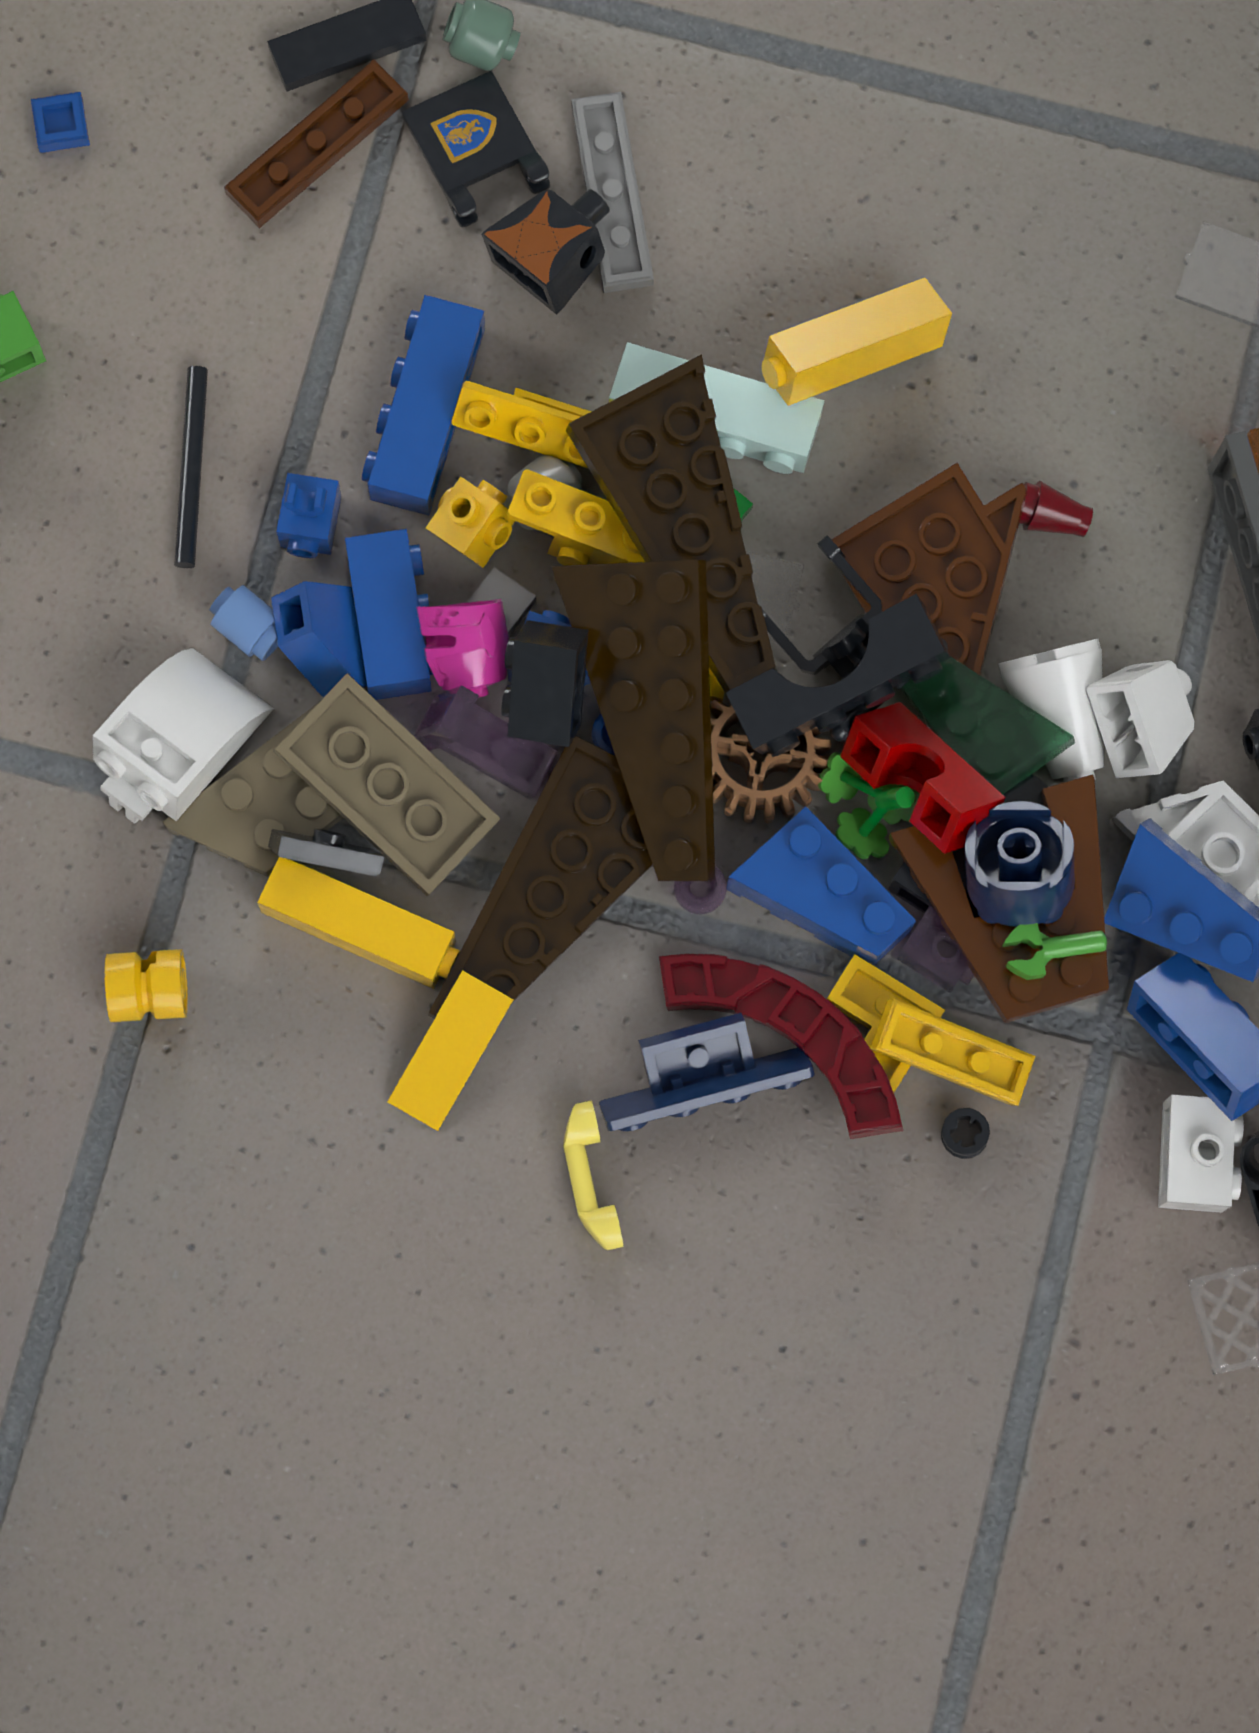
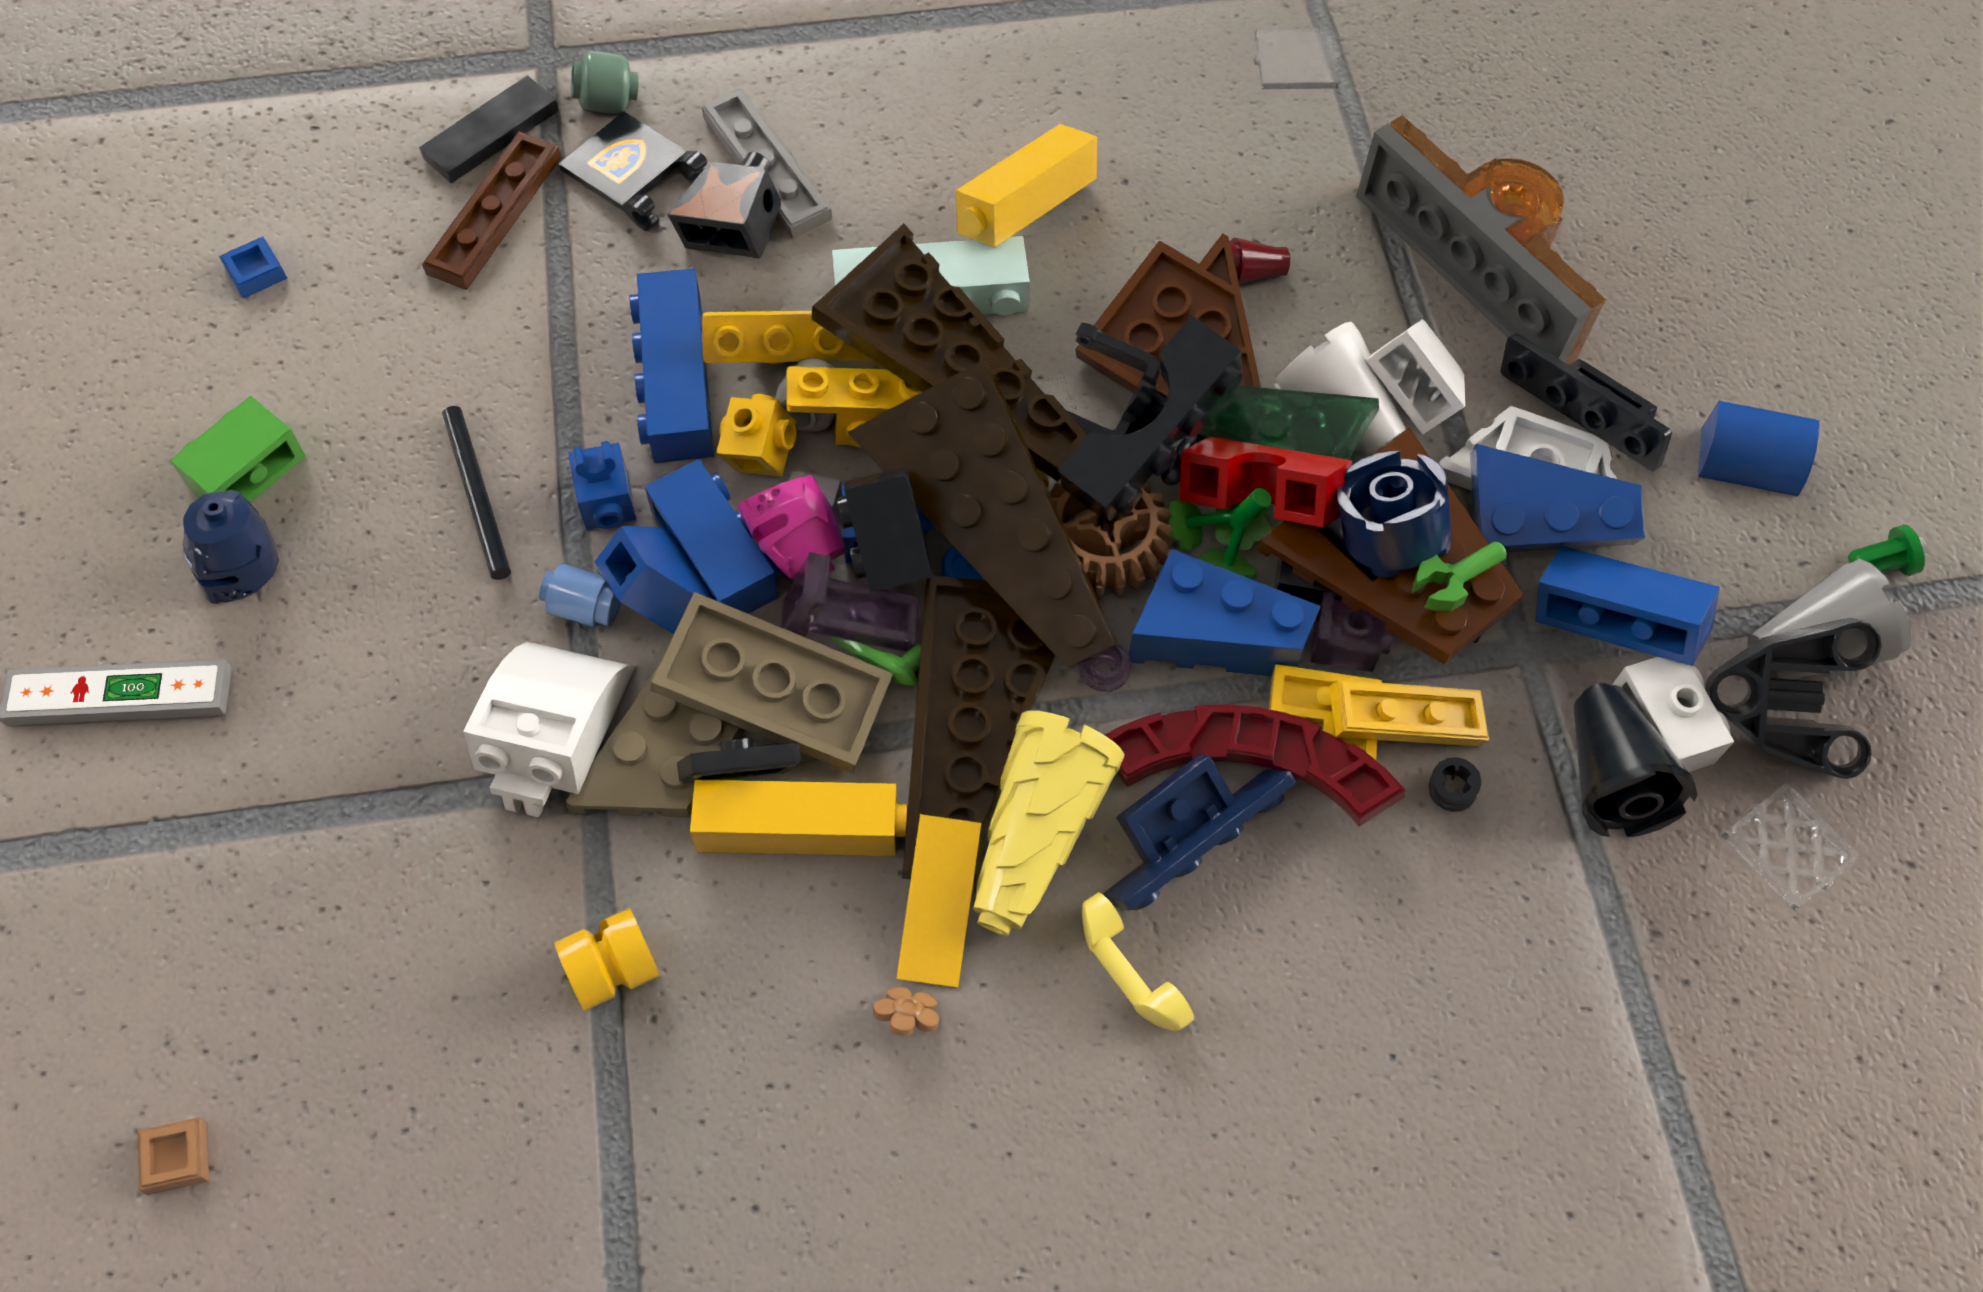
camera: 20 degrees left, 15 degrees down
(381, 1136) = (907, 1011): none -> medium nougat plant
(497, 799) = (902, 668): none -> bright green bar
(586, 995) = (1046, 796): none -> light yellow cone
(1122, 1181) = (1626, 766): none -> black cone

